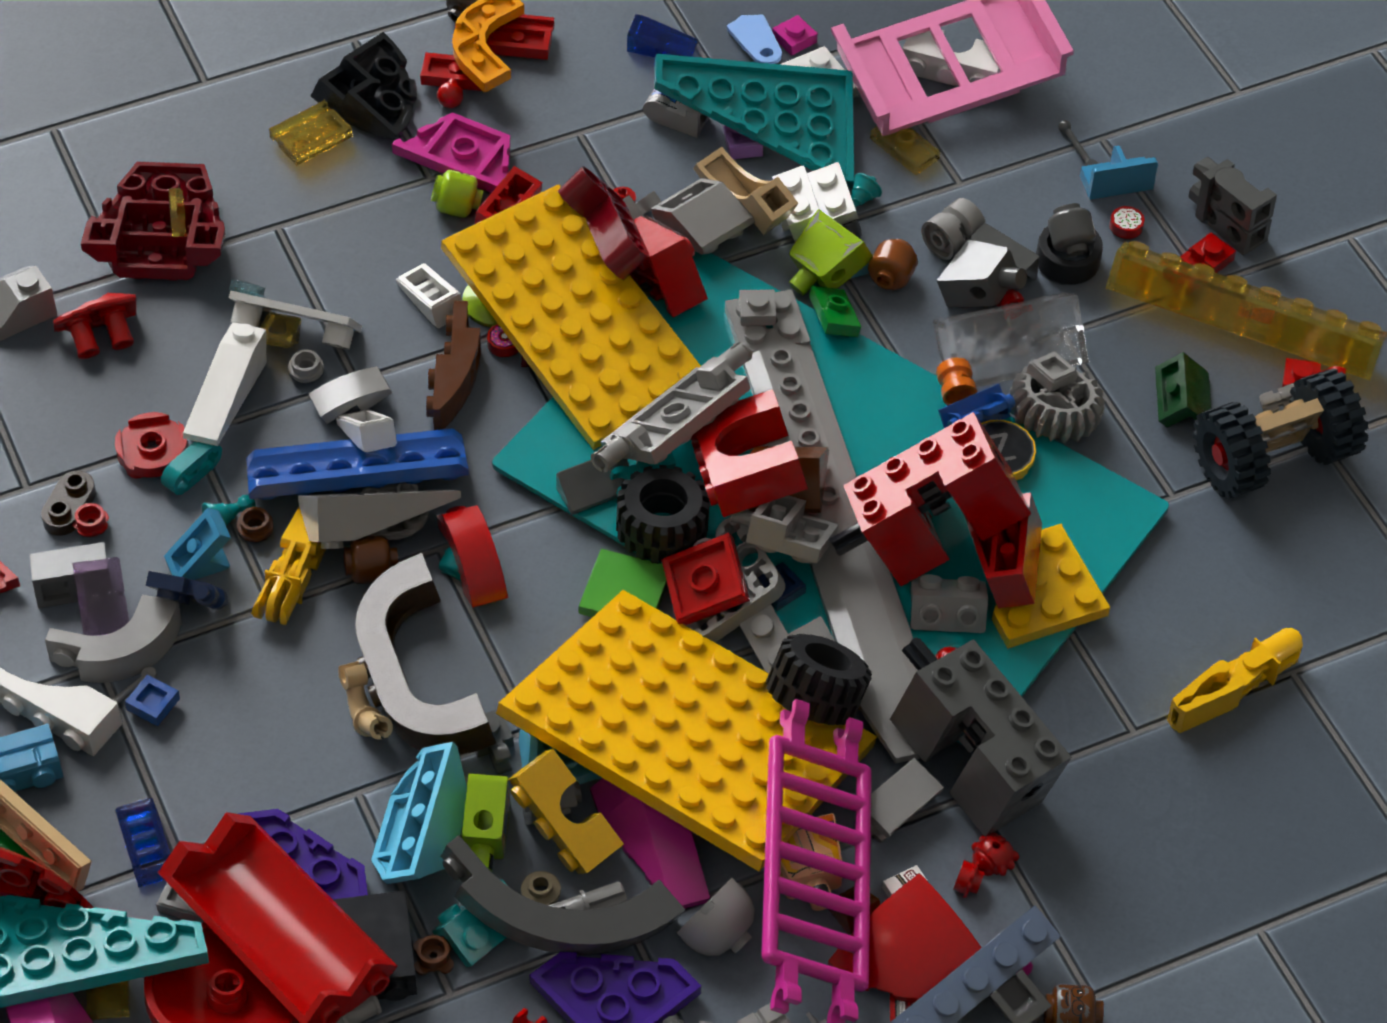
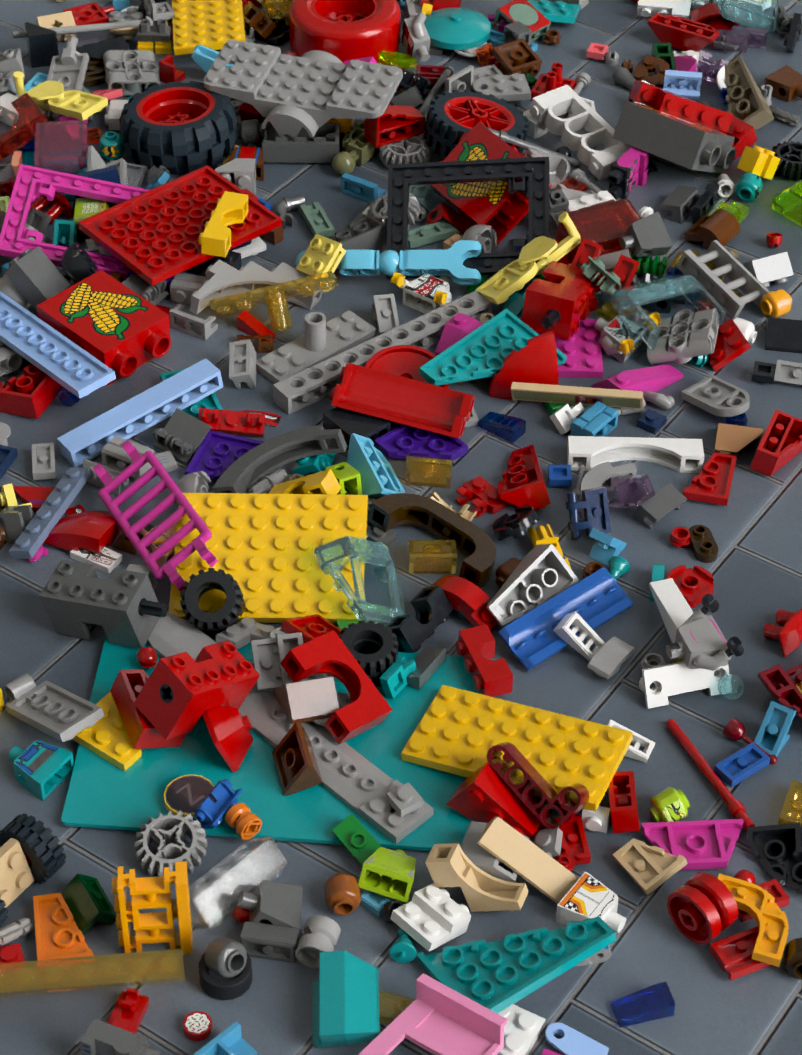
camera: 150 degrees right, 10 degrees down
(49, 797) = (563, 416): none -> white plate
(216, 708) = (524, 480): none -> red wedge
(254, 217) = (774, 728): none -> dark azure slope
(258, 290) = (701, 640): none -> light grey torso
(281, 726) = (483, 494): none -> red plate
(285, 654) = (516, 523): none -> black plate
(290, 243) = (736, 731): none -> dark red hinge
(328, 204) = (741, 765): none -> blue plate
(329, 801) = (429, 472): none -> clear yellow slope
(380, 170) = (735, 806): none -> red bar
(452, 638) = (432, 556): none -> clear yellow slope
(455, 369) = (563, 691): reddish brown slope -> none
(514, 467) = (476, 648): none -> red arch
(532, 64) = (702, 908): none -> red wheel
(536, 147) = (648, 864): none -> tan wing
(553, 545) = (431, 610): none -> black arch
(610, 631) = (336, 554): none -> clear light blue windscreen
(638, 139) = (589, 900): none -> white torso
(674, 183) = (527, 859): none -> tan slope
(678, 412) = (398, 692): light grey plate -> none
(851, 411) = (296, 761): none -> reddish brown slope
(968, 152) = (345, 1001): none -> teal helmet
(1052, 371) = (180, 843): light grey tile -> none
(1118, 639) = (50, 708): none -> light grey hinge
(1139, 263) = (148, 894): none -> light orange fence
(1163, 582) = (41, 767): none -> teal torso
(1234, 367) = (56, 930): none -> orange wing

